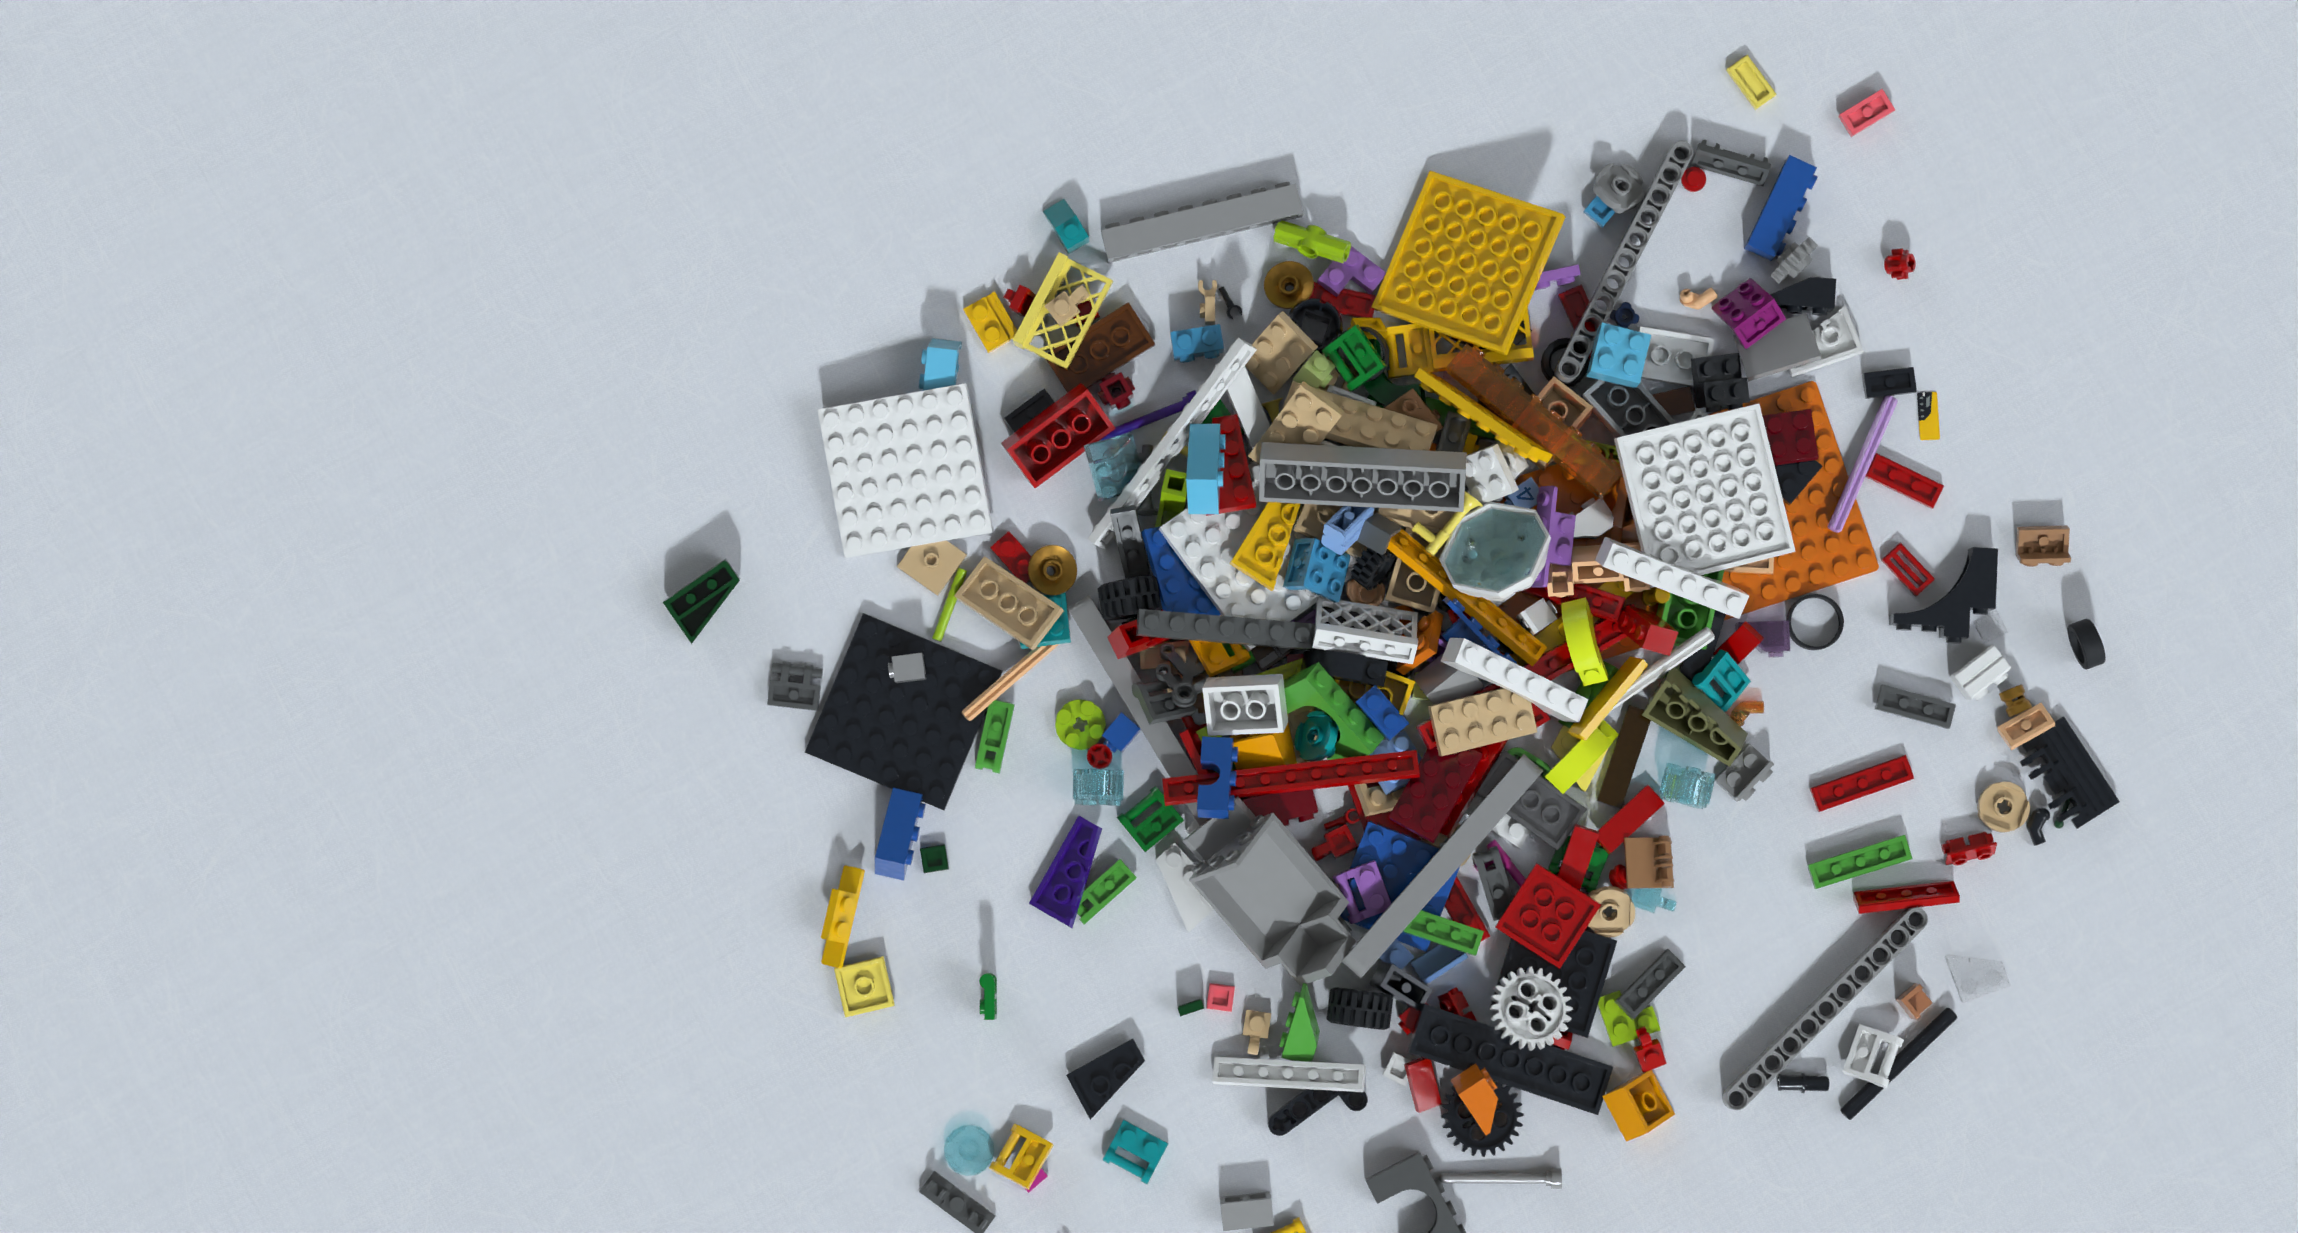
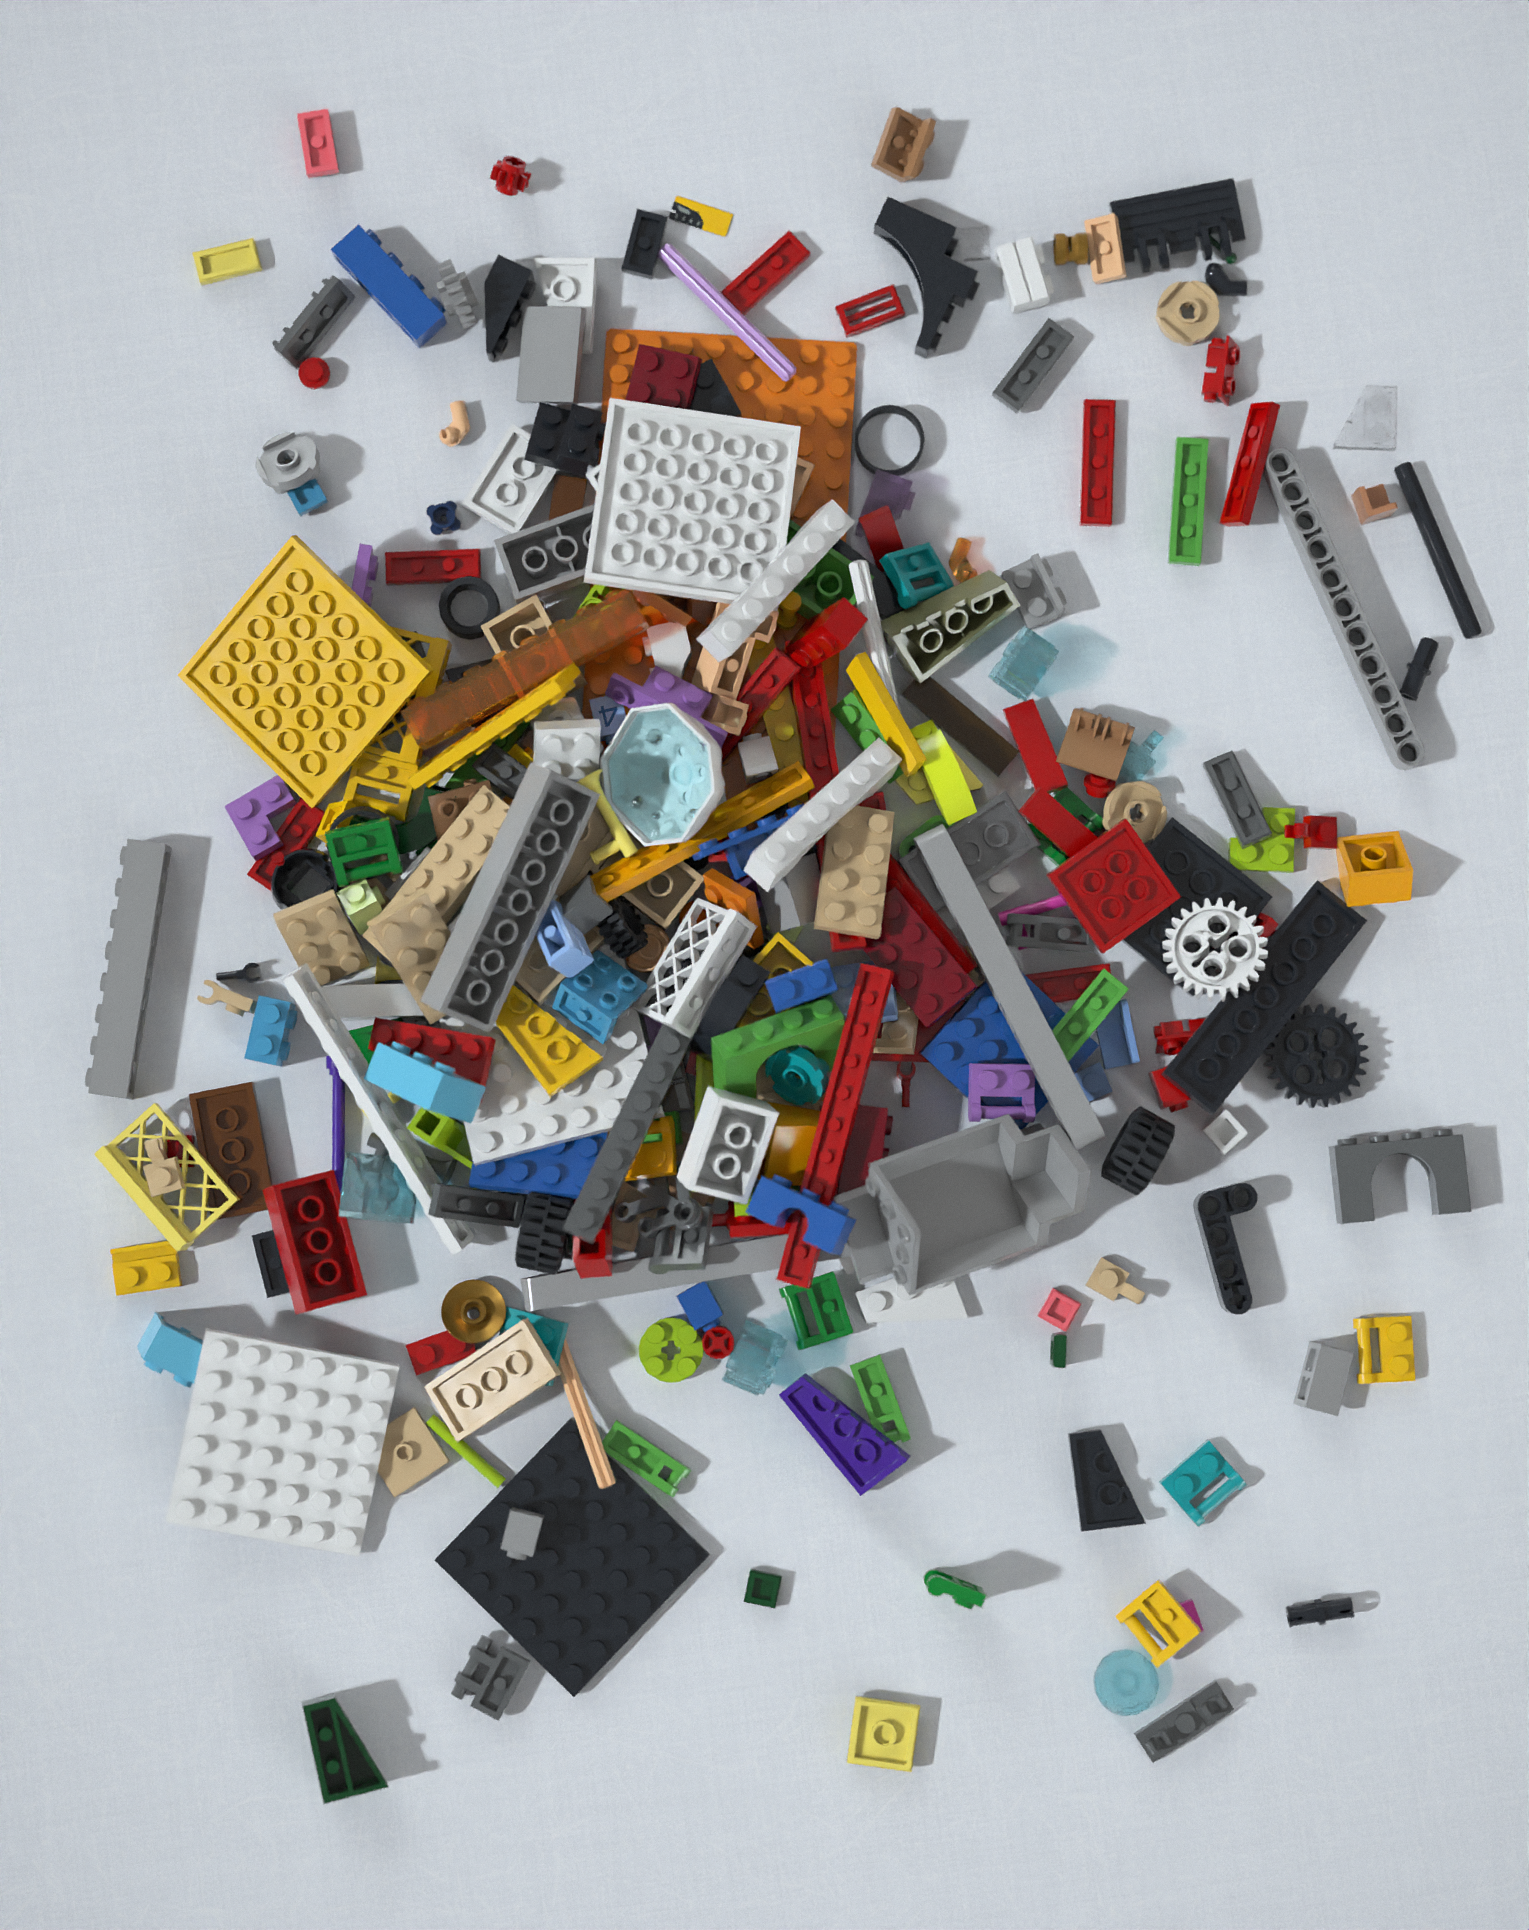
camera: 75 degrees left, 0 degrees up
(841, 916) = (788, 1730): yellow bracket -> none
(898, 834) = (716, 1621): blue wedge -> none
(1020, 300) = (133, 1223): red tile -> none
(1066, 226) = (67, 1132): teal slope -> none
(1112, 382) = (277, 1150): dark red brick -> none
(1288, 274) = (233, 891): pearl gold dish -> none
(1289, 1074) = (1183, 1265): white plate -> none
(1303, 1030) = (1140, 1228): bright green slope -> none
(1312, 241) = (205, 847): lime piece -> none
(1337, 842) = (931, 1098): red plate -> none
(1400, 985) = (1129, 1091): black slope -> none
(1422, 1084) = (1254, 1111): red tile -> none
(1478, 1094) = (1296, 1051): orange slope -> none
(1550, 1178) = (1419, 1005): light grey piece -> none
(1582, 641) = (808, 716): neon yellow arch -> none
(1618, 355) = (487, 538): medium azure brick -> none
(1631, 253) = (371, 478): light grey beam -> none
(1749, 312) = (497, 370): magenta bracket -> none
(1864, 1053) = (1413, 585): white plate -> none
(2086, 644) = (1037, 140): black tyre -> none

